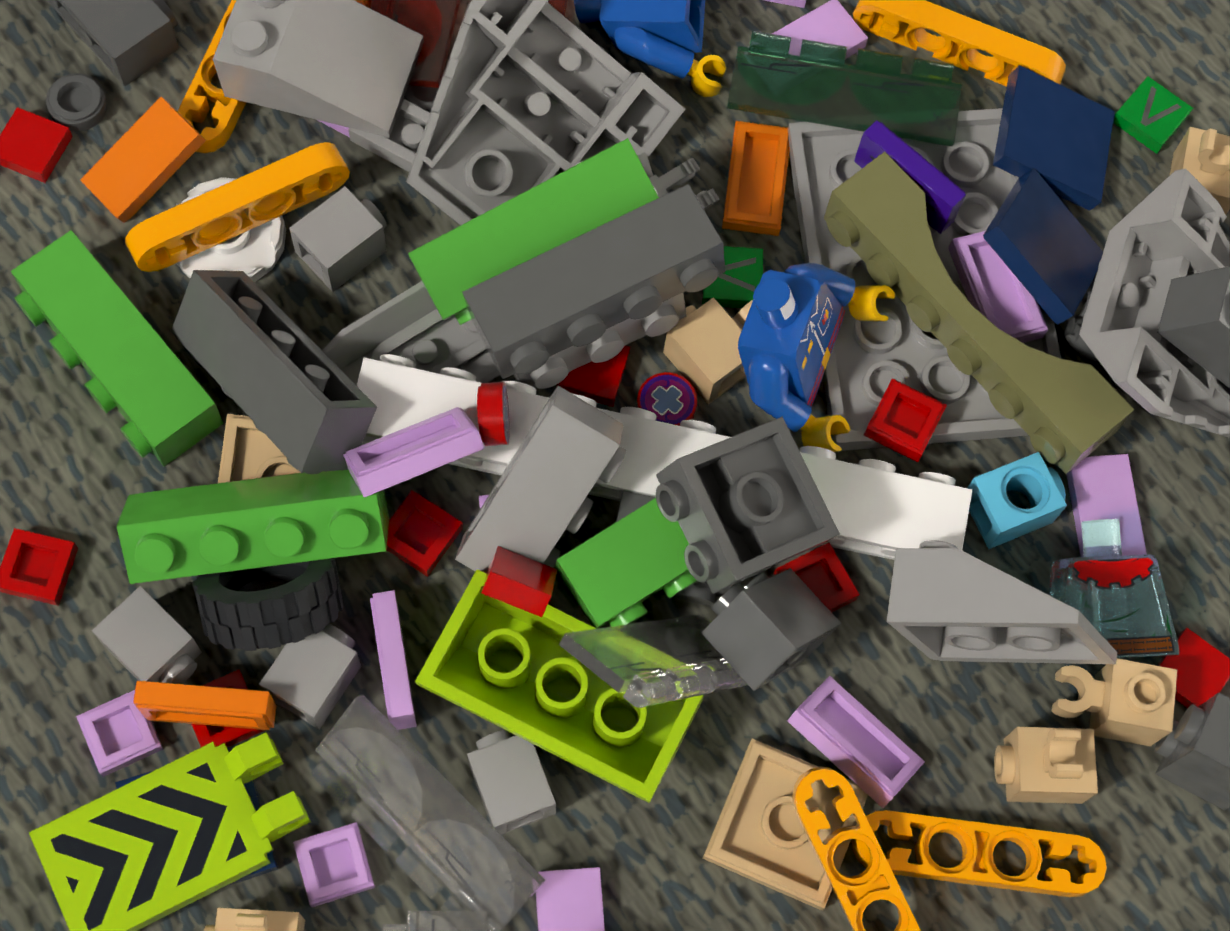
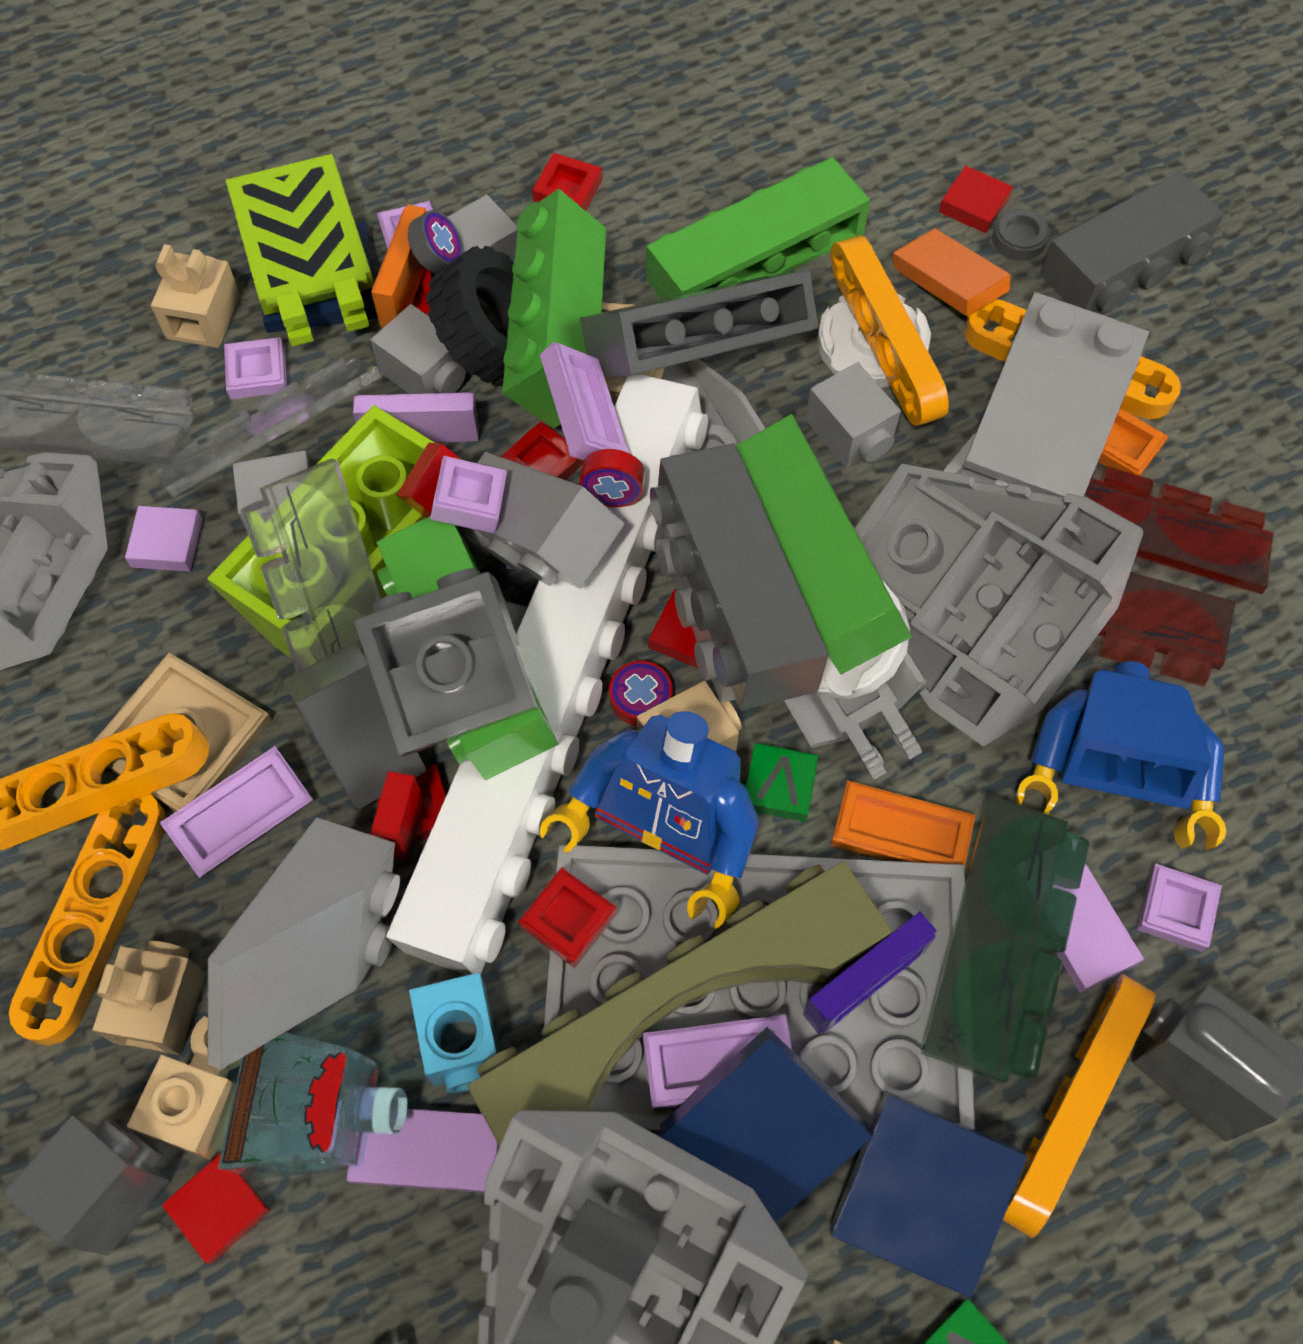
camera: 105 degrees right, 5 degrees down
(185, 661) = (434, 240): none -> tile
(543, 536) = (468, 494): none -> lavender tile
(848, 576) = (398, 812): none -> red tile

